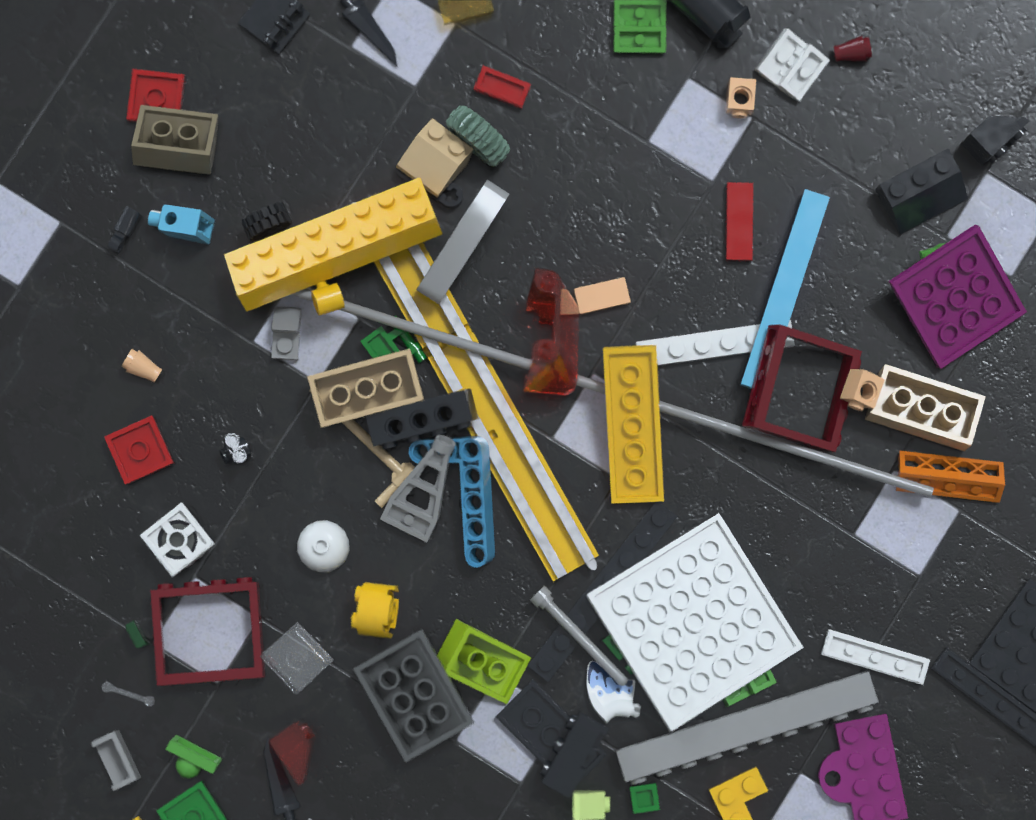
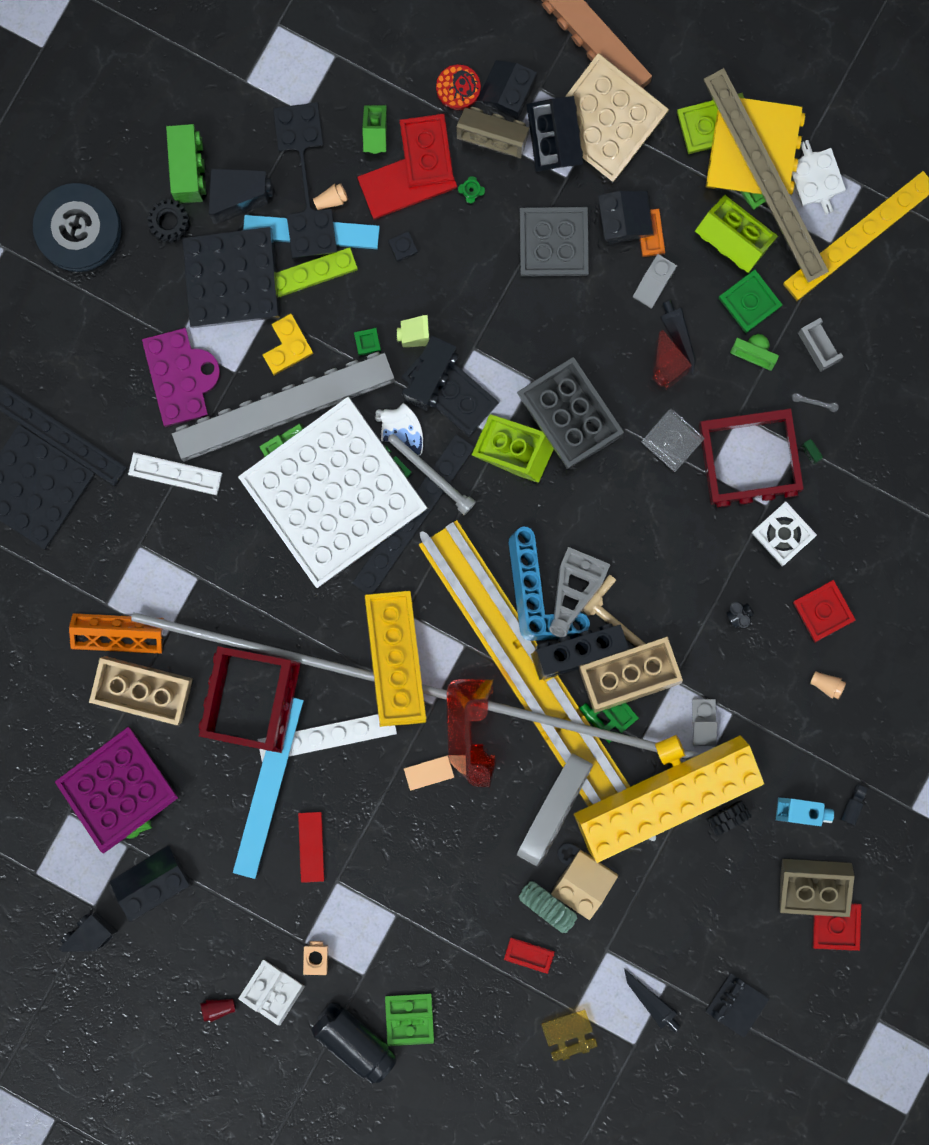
camera: 175 degrees left, 0 degrees up
(323, 546) = (657, 538): white cylinder -> none
(376, 610) = (607, 484): yellow brick -> none
(871, 387) = (203, 707): light nougat brick -> none

